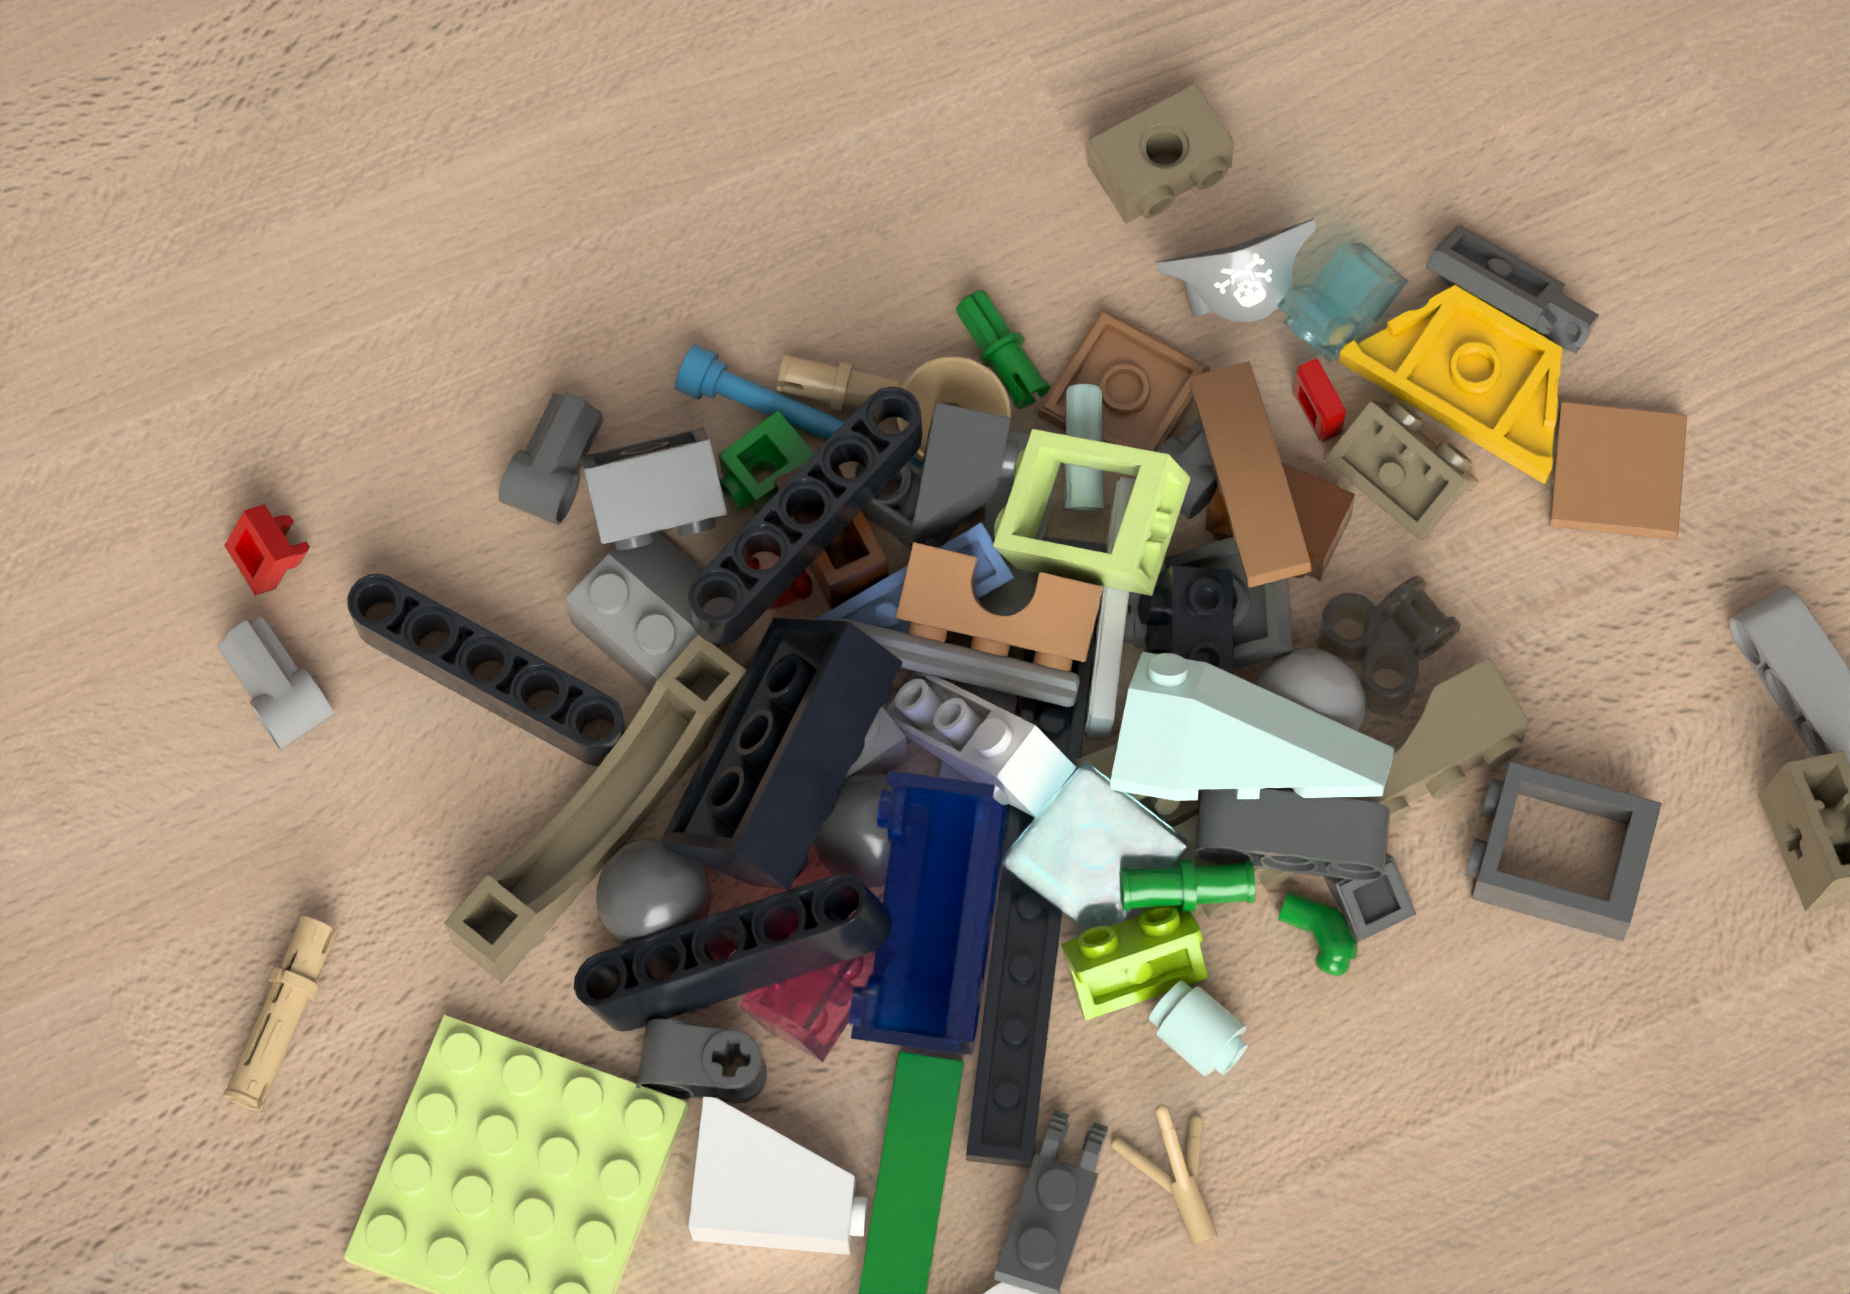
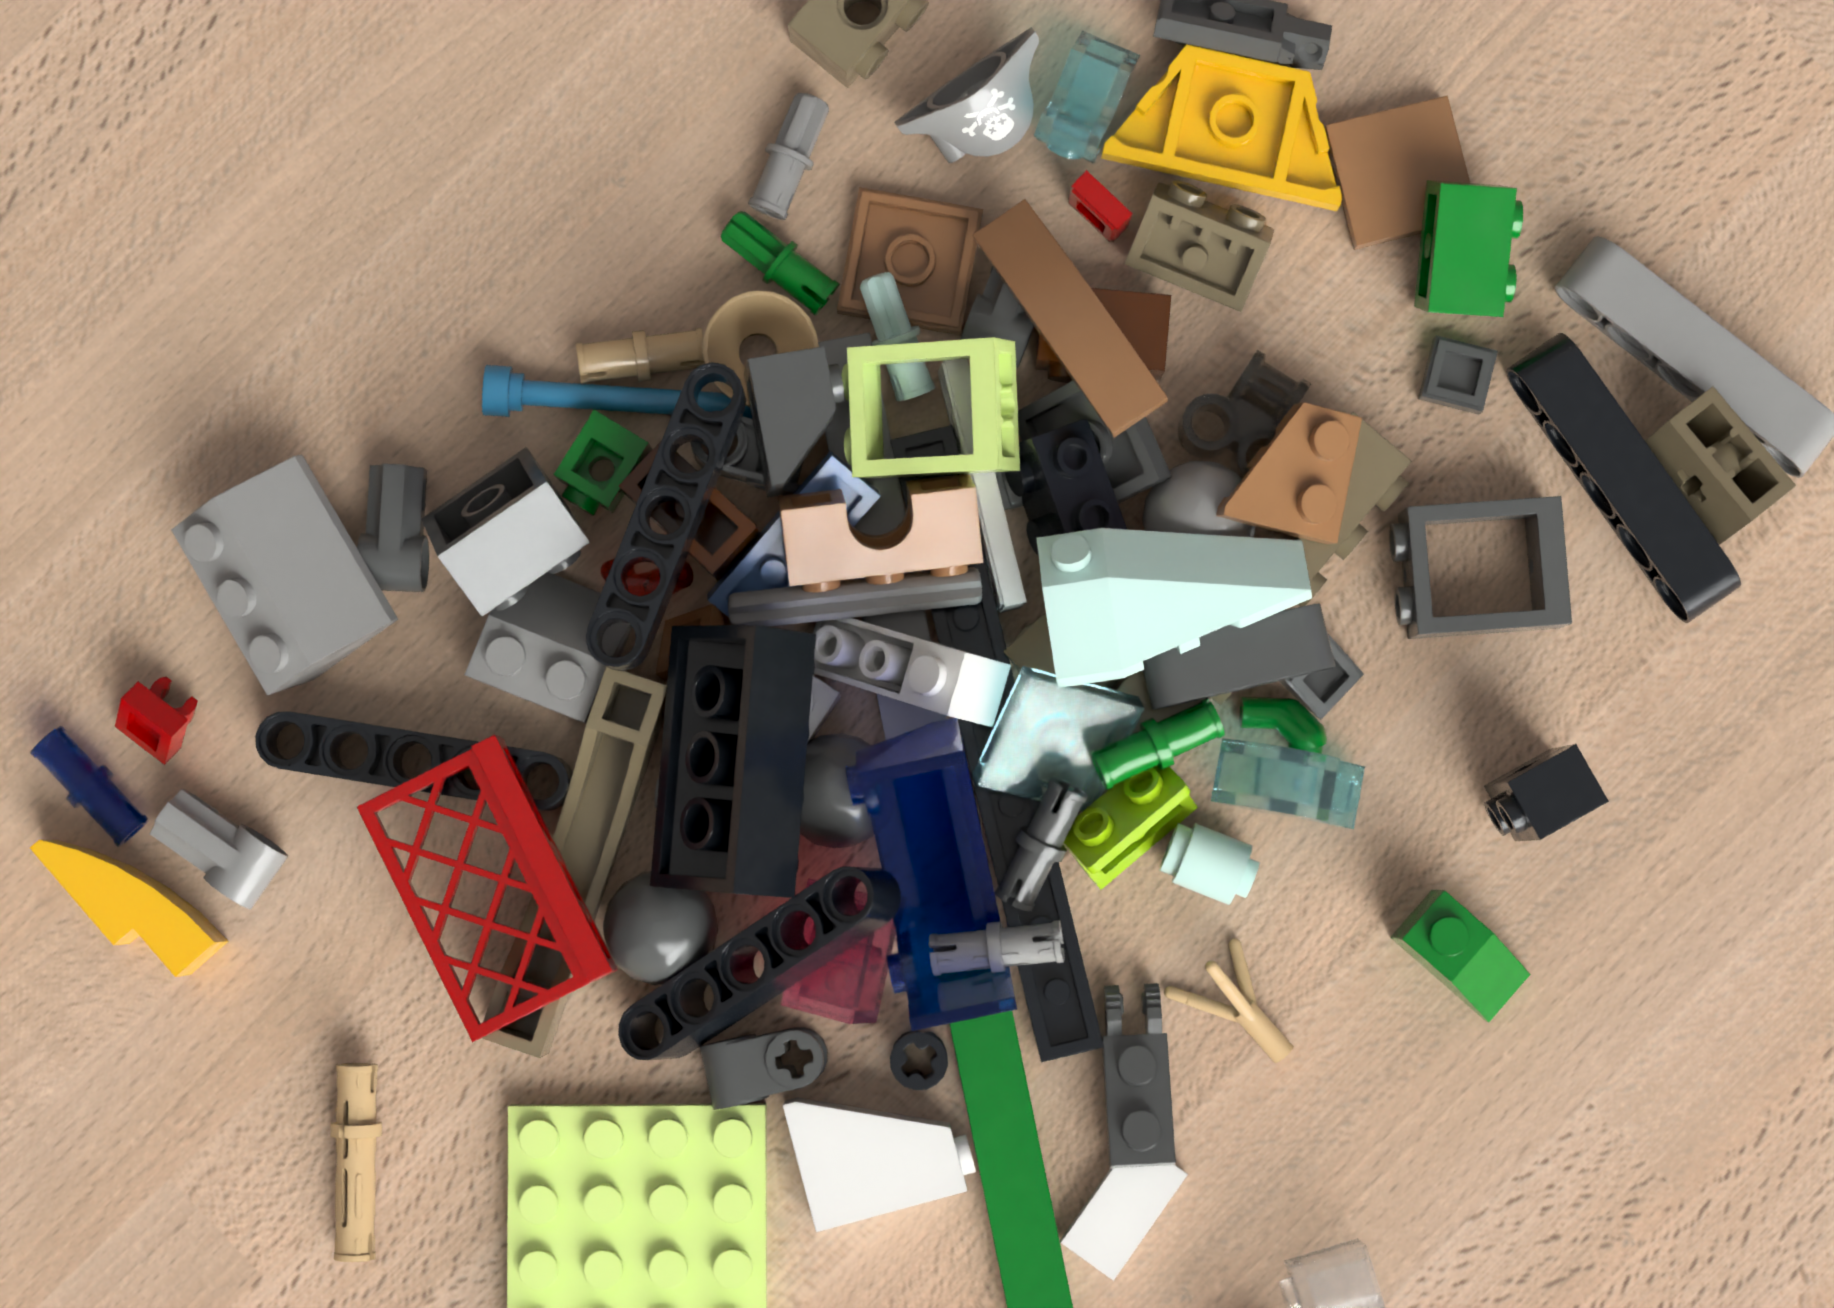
camera: 25 degrees left, 15 degrees up
(174, 706) = (132, 905): none -> yellow slope
(180, 587) = (89, 786): none -> clear blue pin
(436, 458) = (284, 575): none -> light grey slope
(565, 789) = (538, 861): none -> red fence
(864, 1098) = (915, 1079): none -> black bush
(963, 1018) = (996, 948): none -> light grey pin
(1042, 942) = (1041, 844): none -> dark grey pin
(1047, 261) = (789, 156): none -> light grey axle
(1304, 975) = (1288, 782): none -> clear light blue brick
(1412, 691) = (1300, 477): none -> medium nougat wing
(1414, 1204) = (1461, 953): none -> green slope
(1544, 1071) = (1543, 794): none -> black brick
(1607, 671) = (1457, 375): none -> dark grey tile
(1654, 550) = (1467, 248): none -> green brick
(1733, 817) = (1623, 477): none -> black beam

